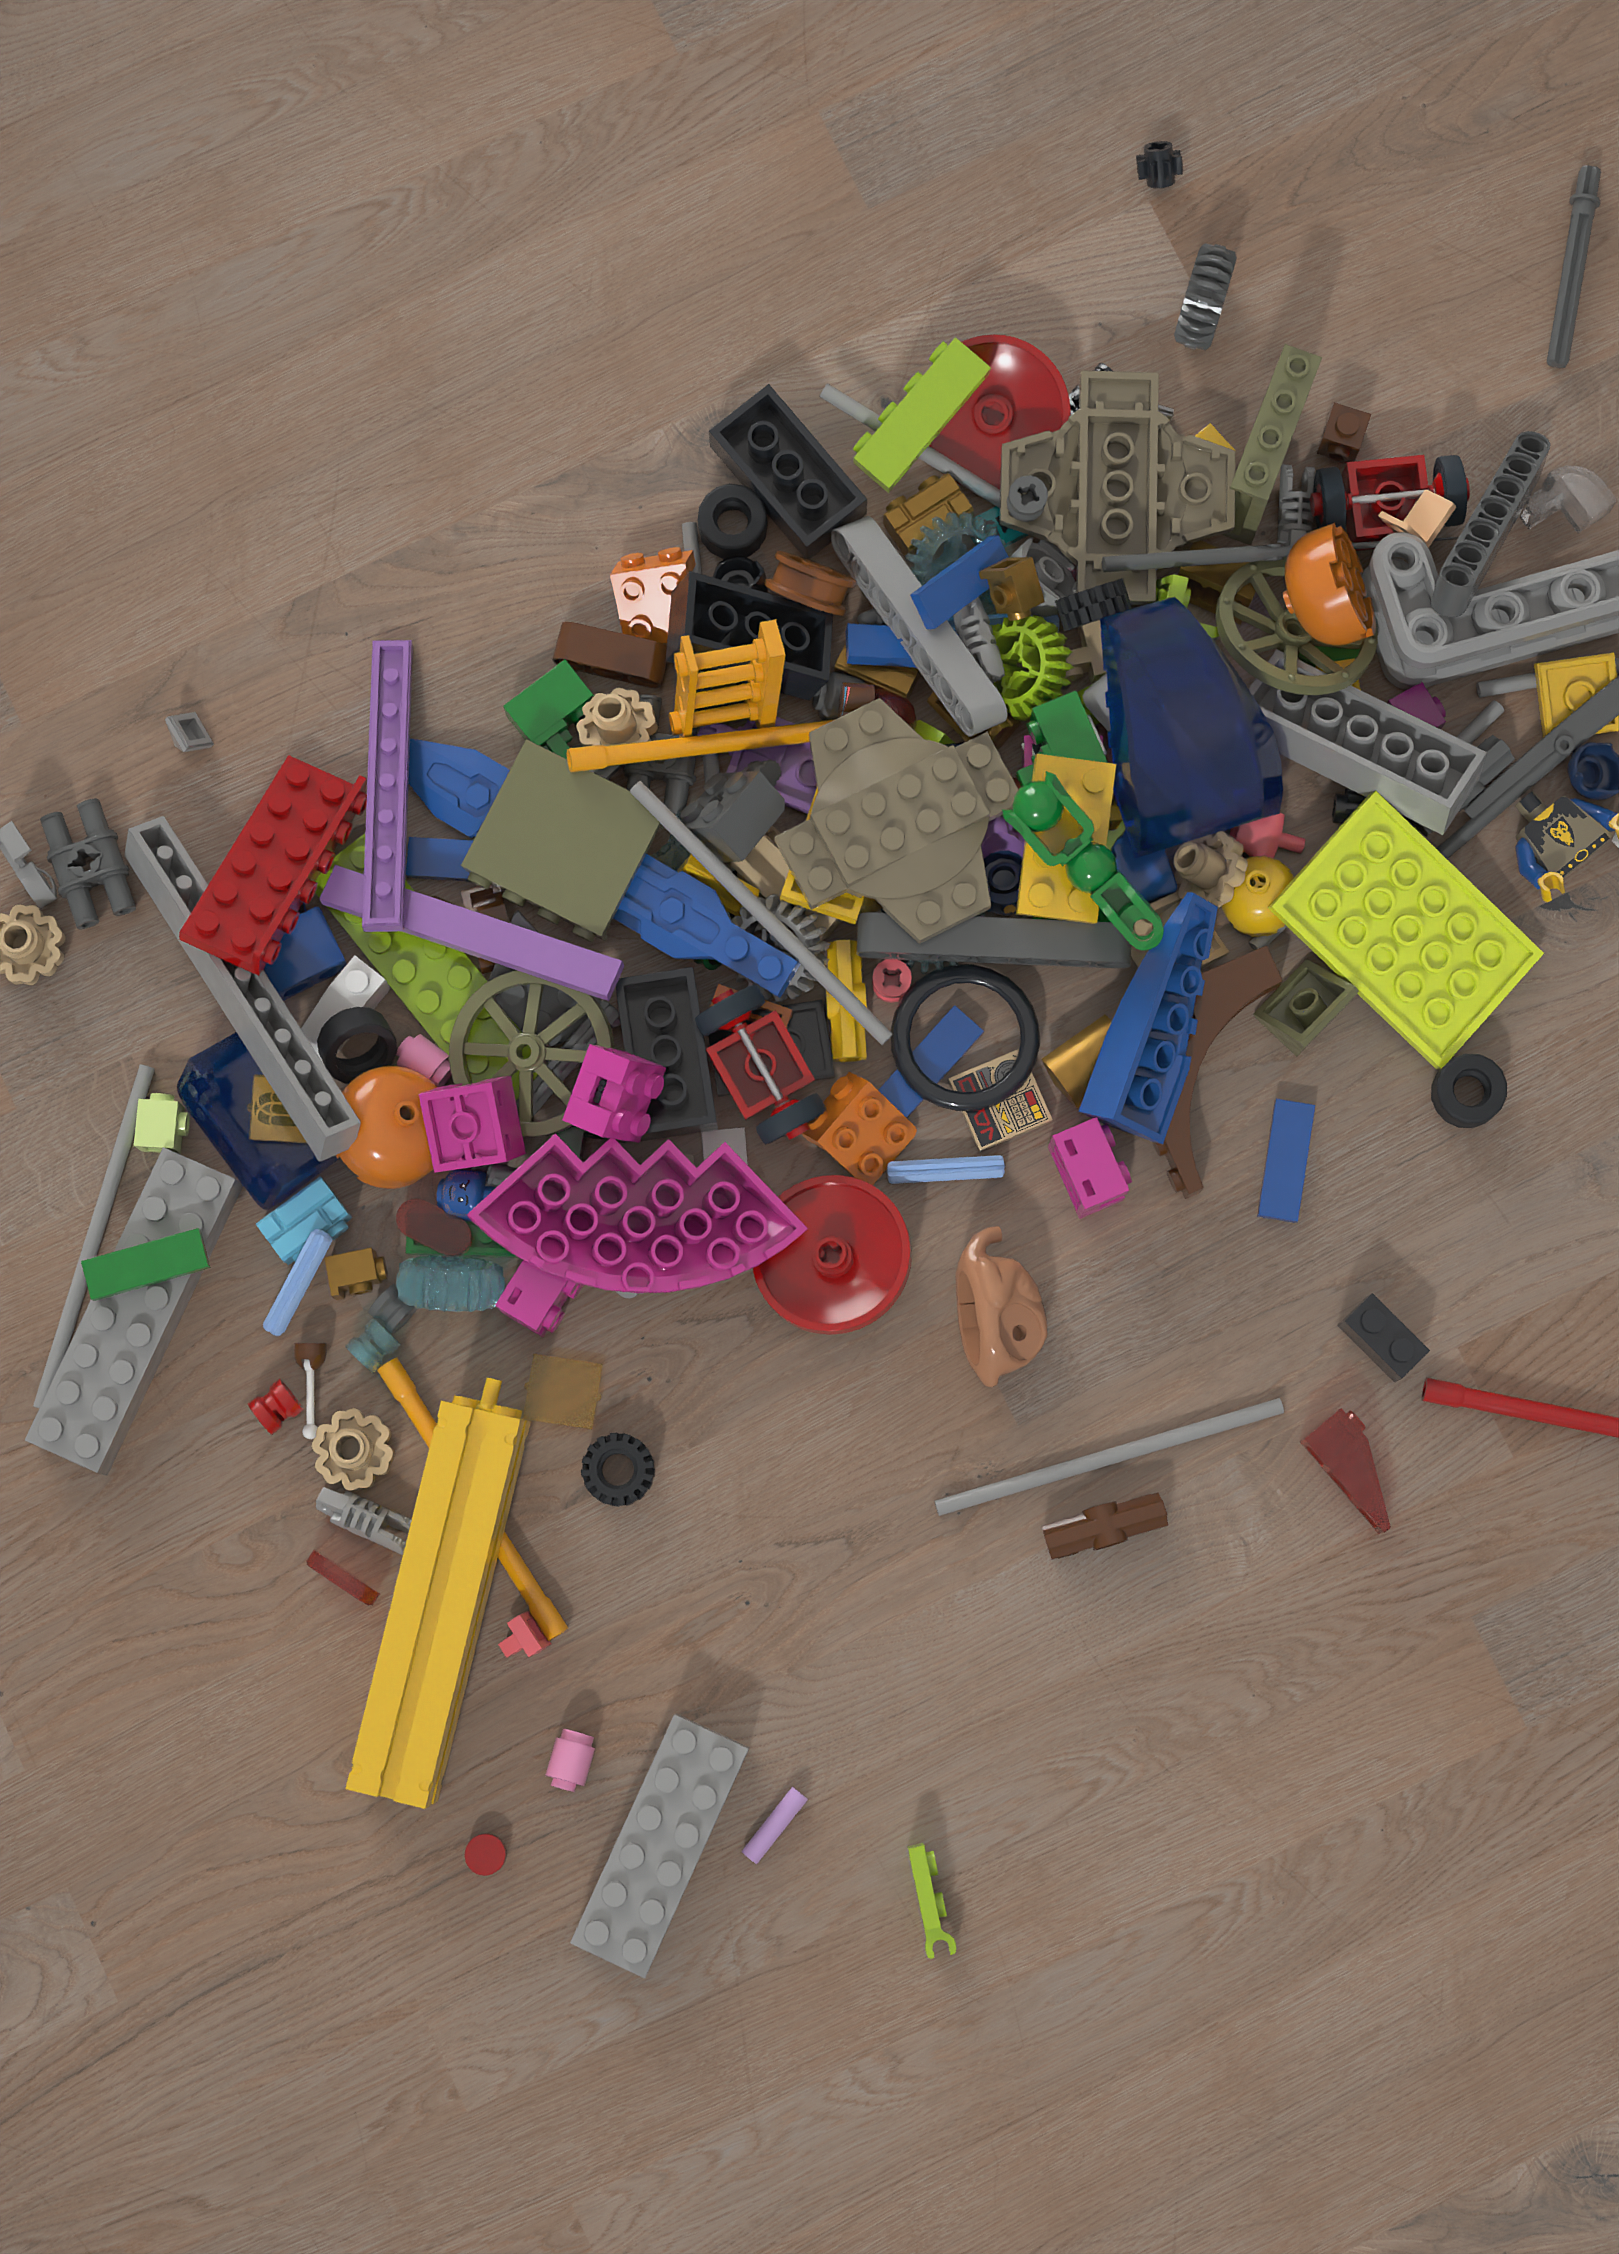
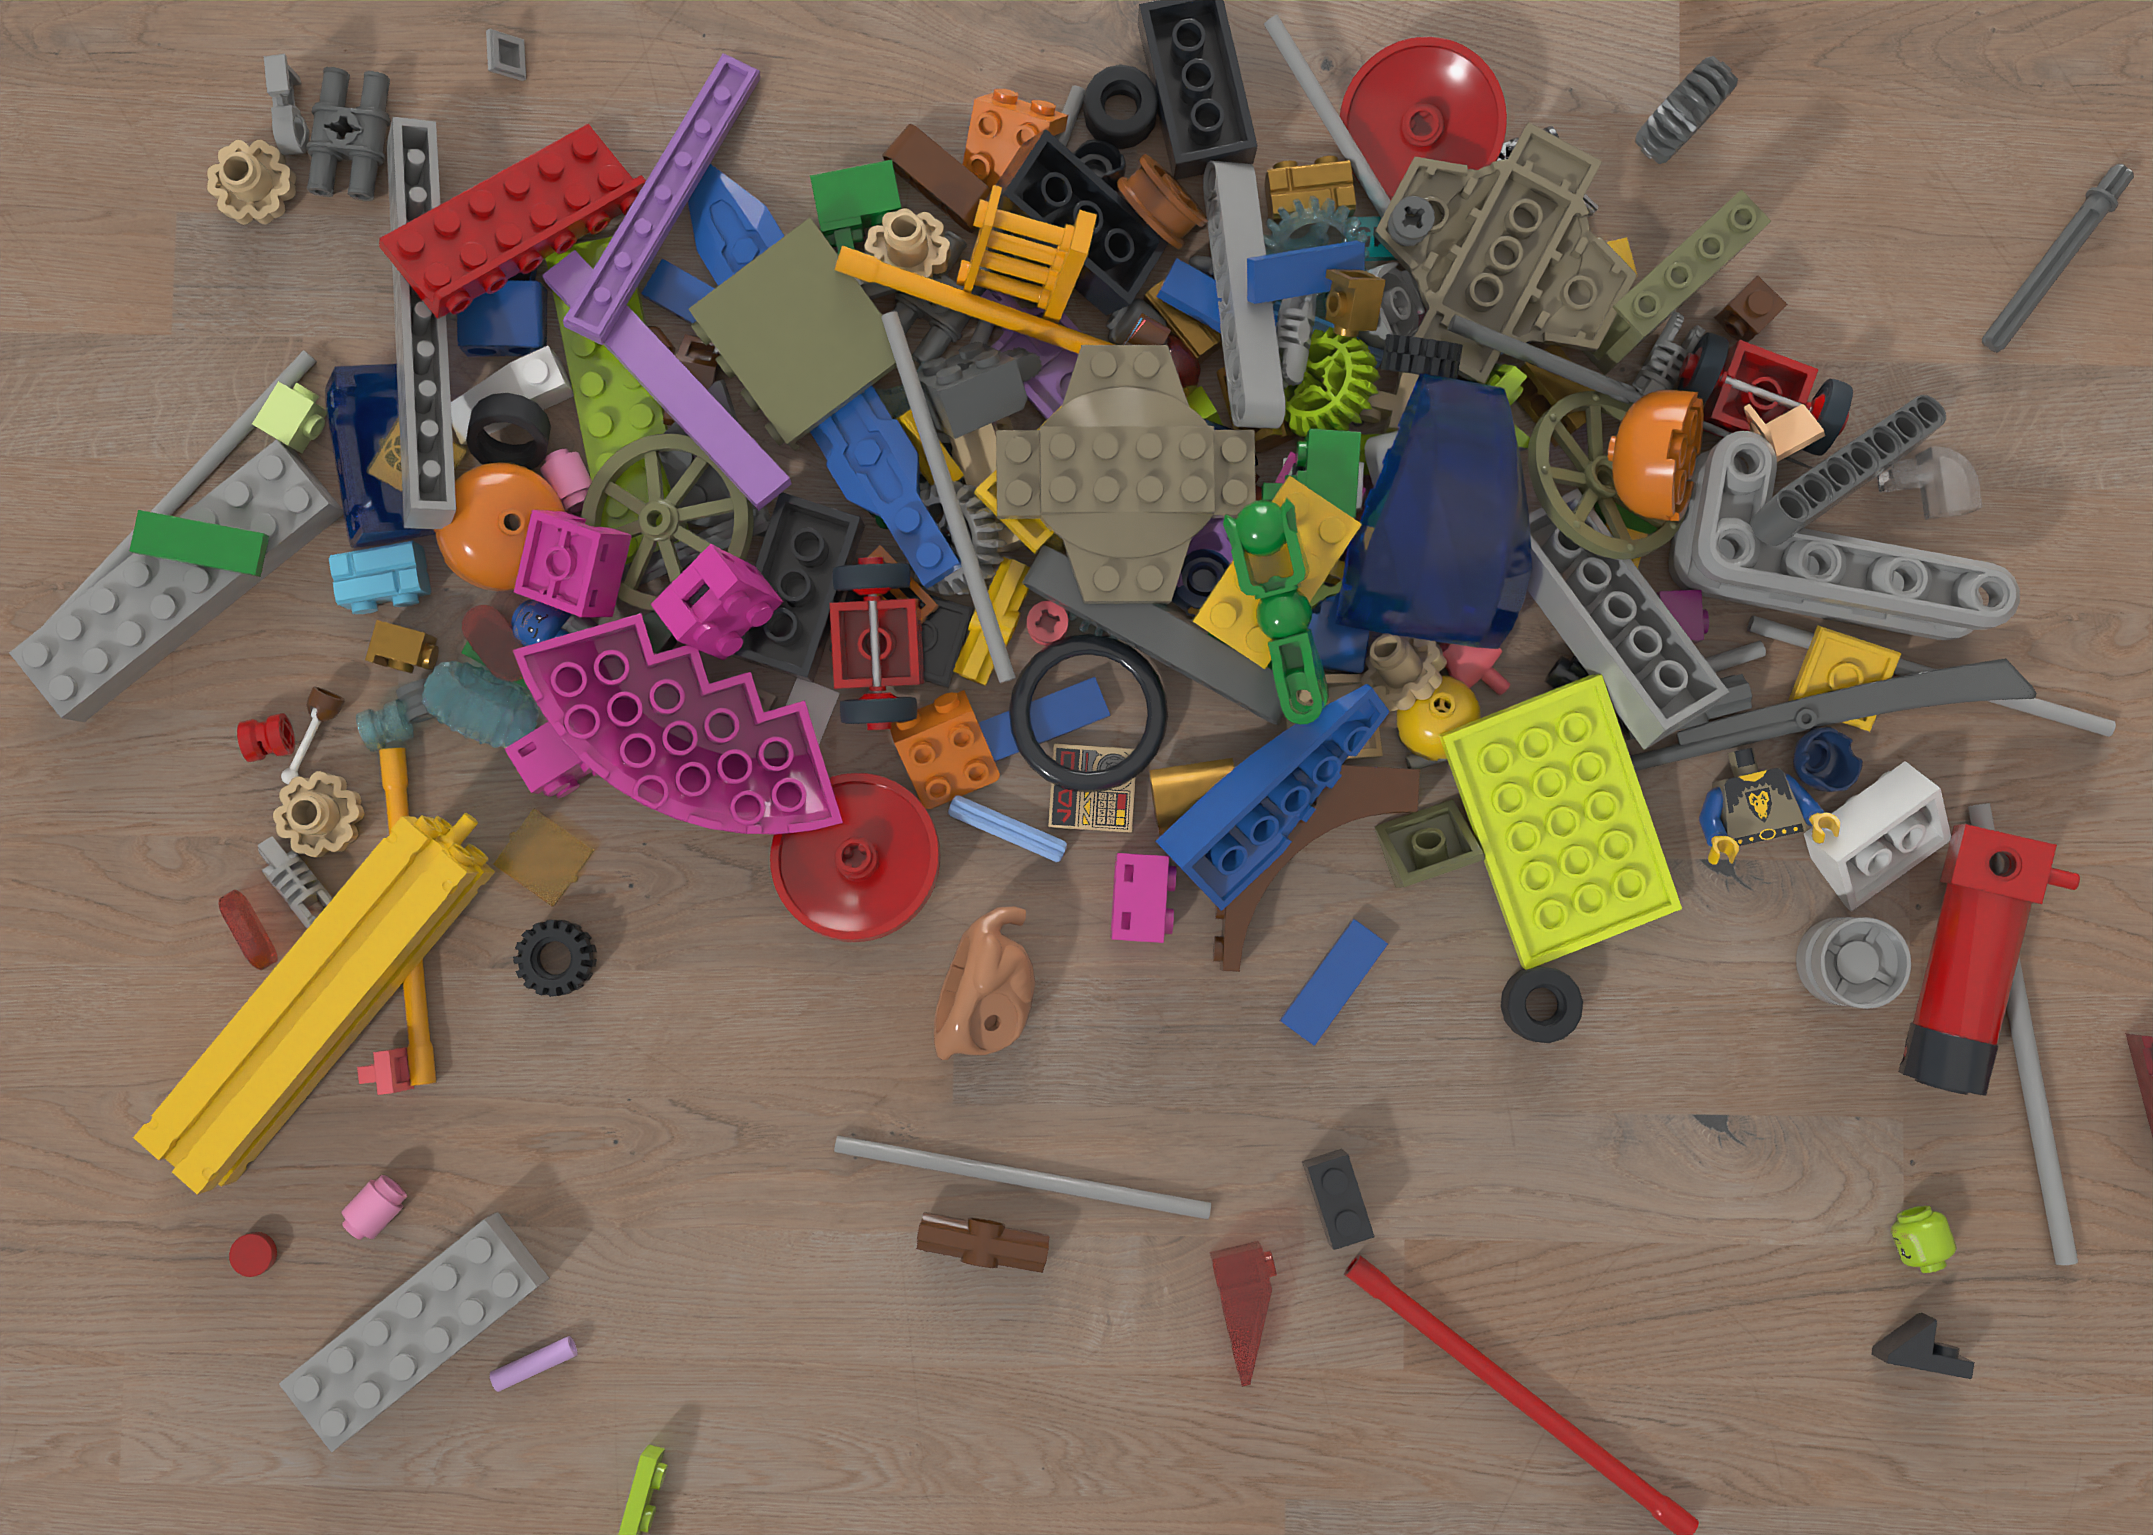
camera: 20 degrees right, 5 degrees up
(297, 1282) = (342, 630): light blue axle -> none
(921, 414) = (1352, 87): lime brick -> none

